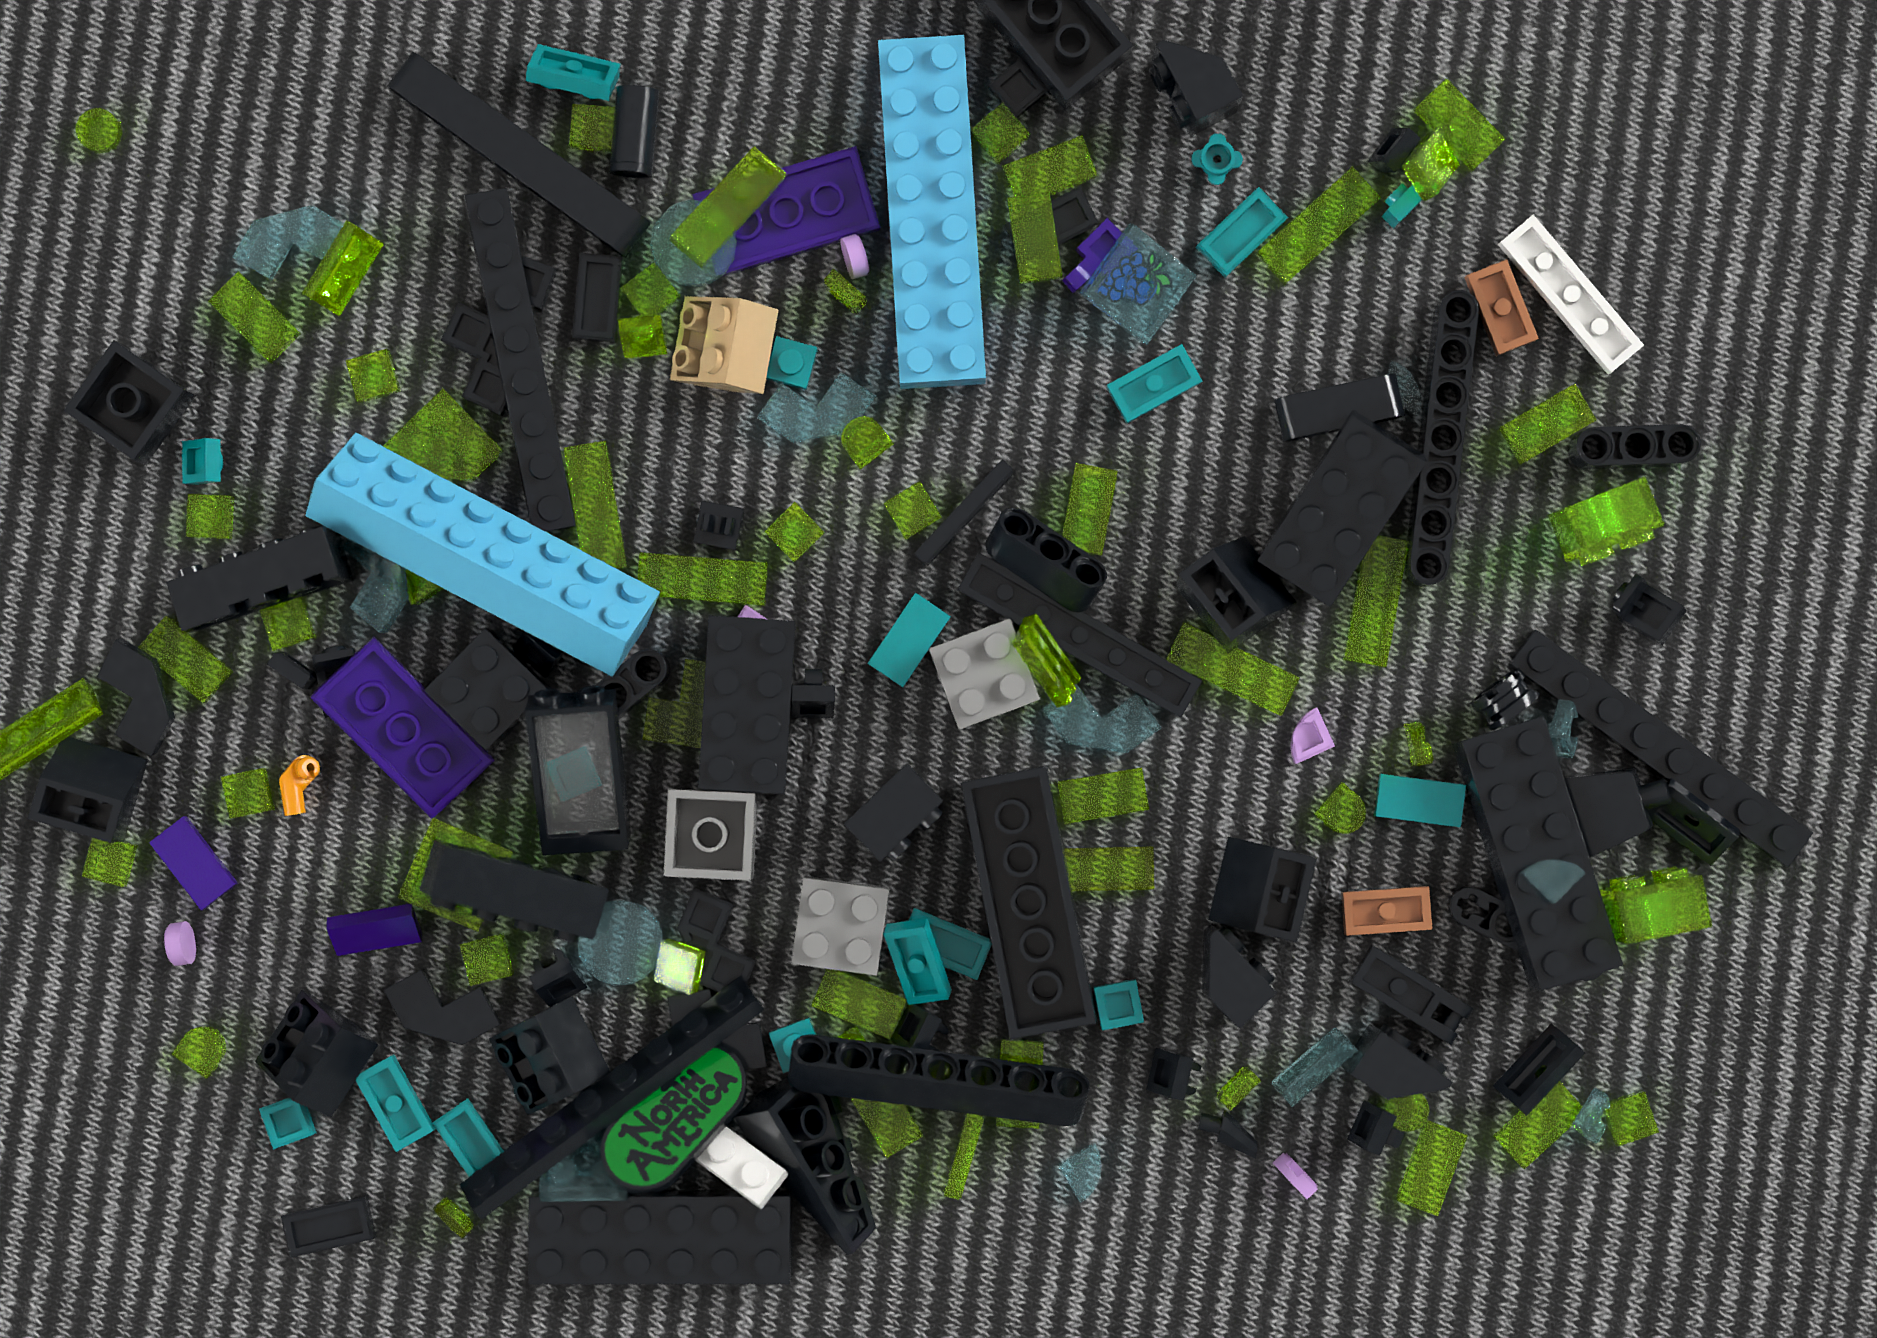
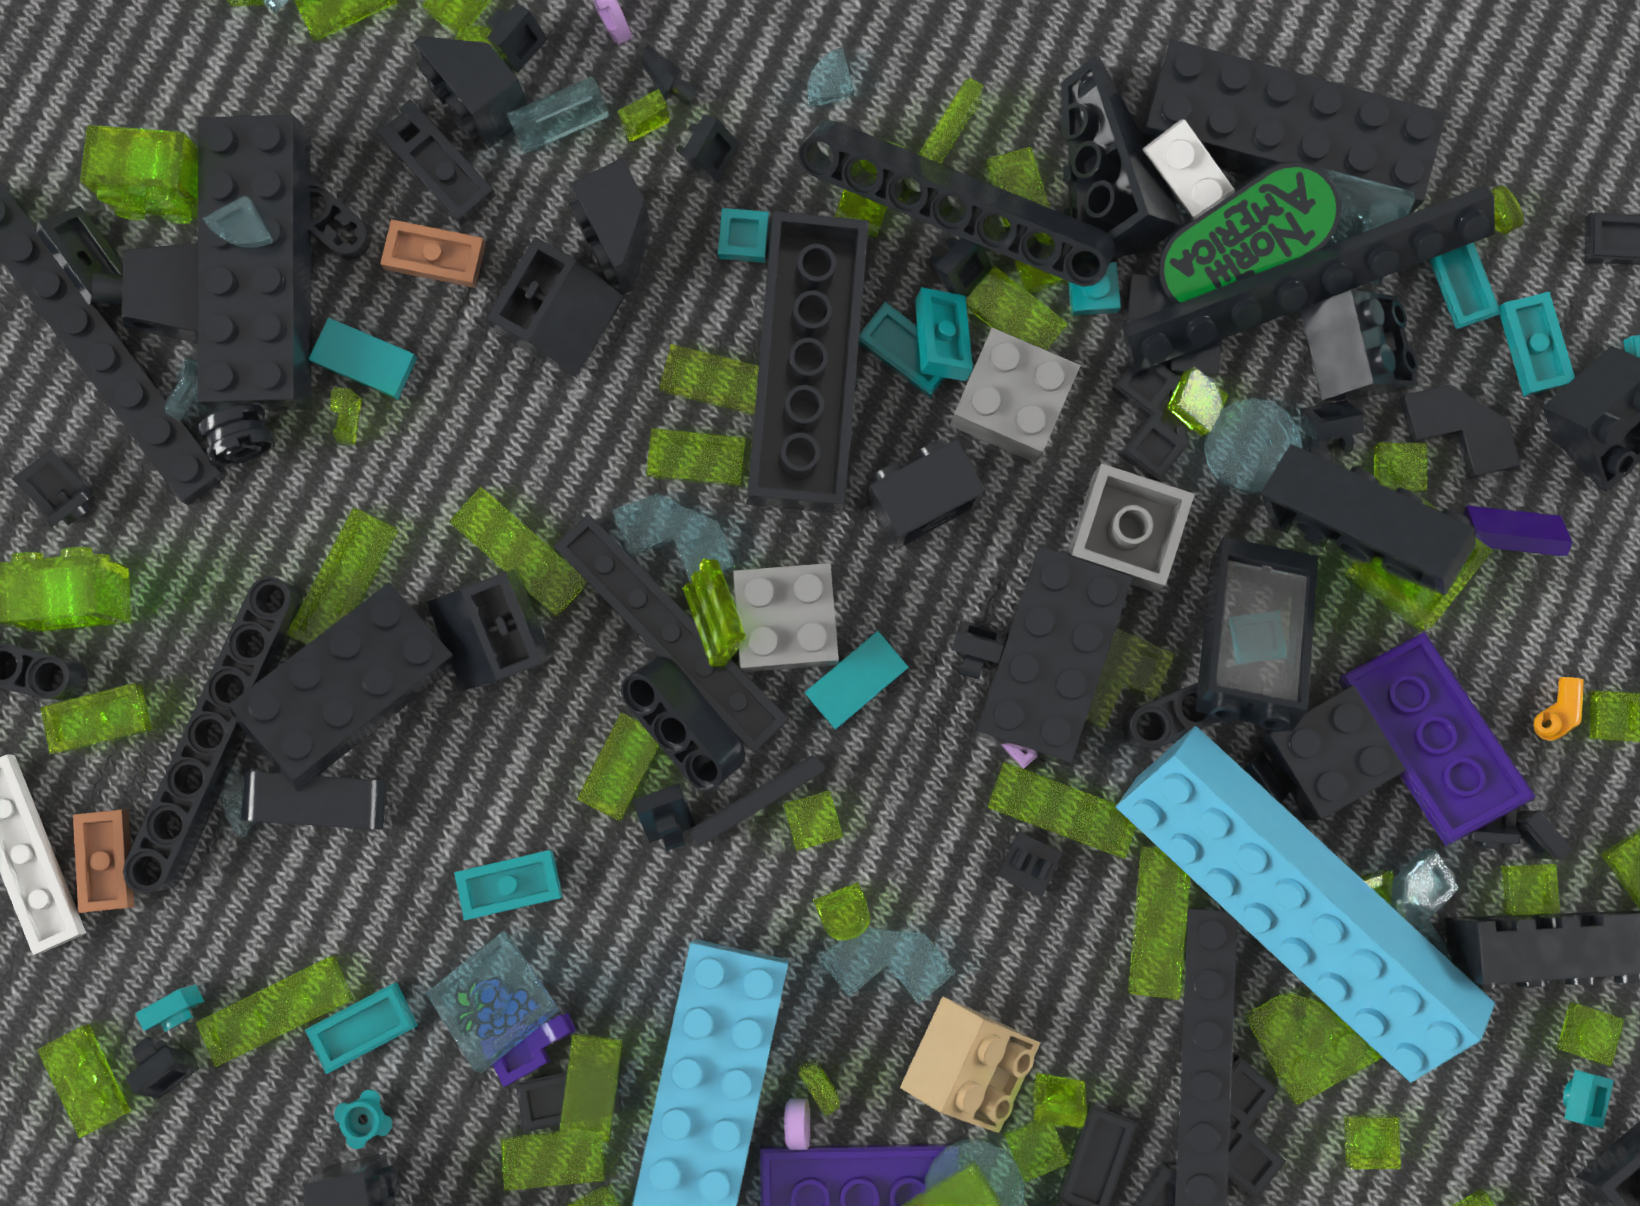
camera: 165 degrees left, 5 degrees down
(791, 363) = (900, 1023): teal plate -> none
(794, 532) = (949, 832): clear neon green plate -> none
(1038, 478) = (665, 815): none -> black tile
(1310, 737) = (458, 457): lavender tile -> none
(1342, 810) = (448, 371): clear neon green tile -> none
(1430, 165) = (124, 1042): clear neon green tile -> none
(1539, 1069) = (311, 66): black piece -> none

